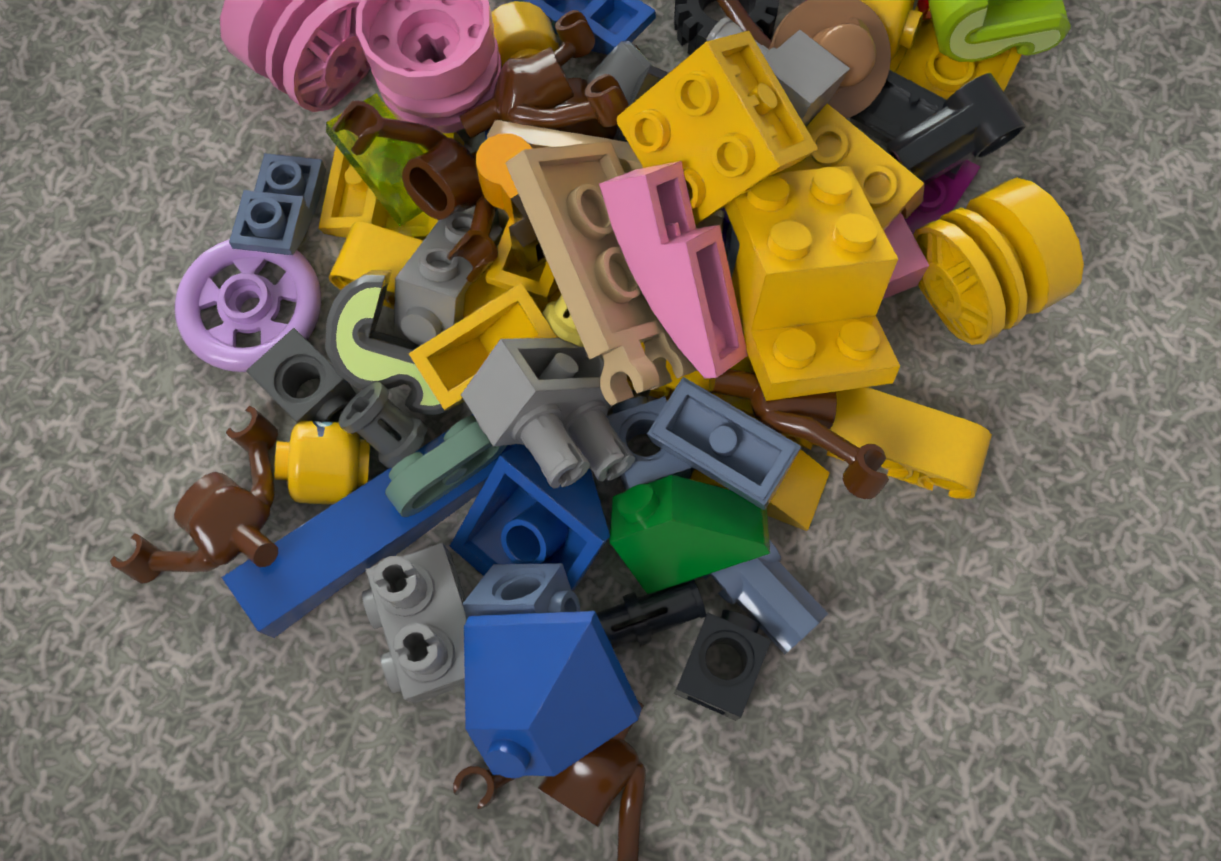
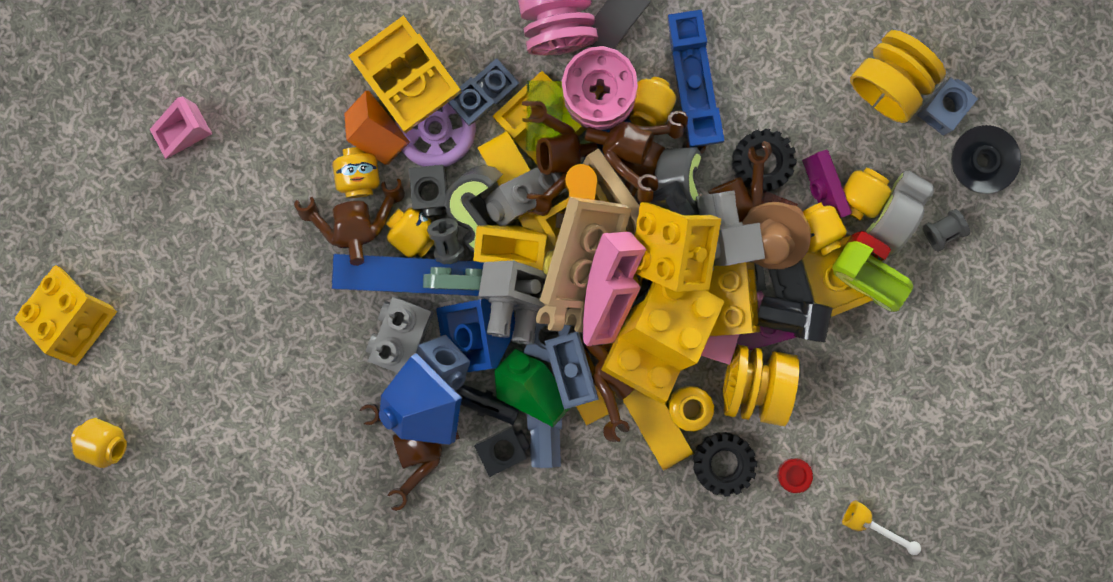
camera: 45 degrees right, 15 degrees up
(143, 252) = (405, 74): none -> yellow bracket
(160, 367) = (373, 129): none -> orange slope
(173, 444) = (356, 173): none -> yellow head
(934, 371) = (690, 408): none -> yellow head
(1070, 392) = (745, 467): none -> black tyre
(1146, 356) = (795, 475): none -> red tile

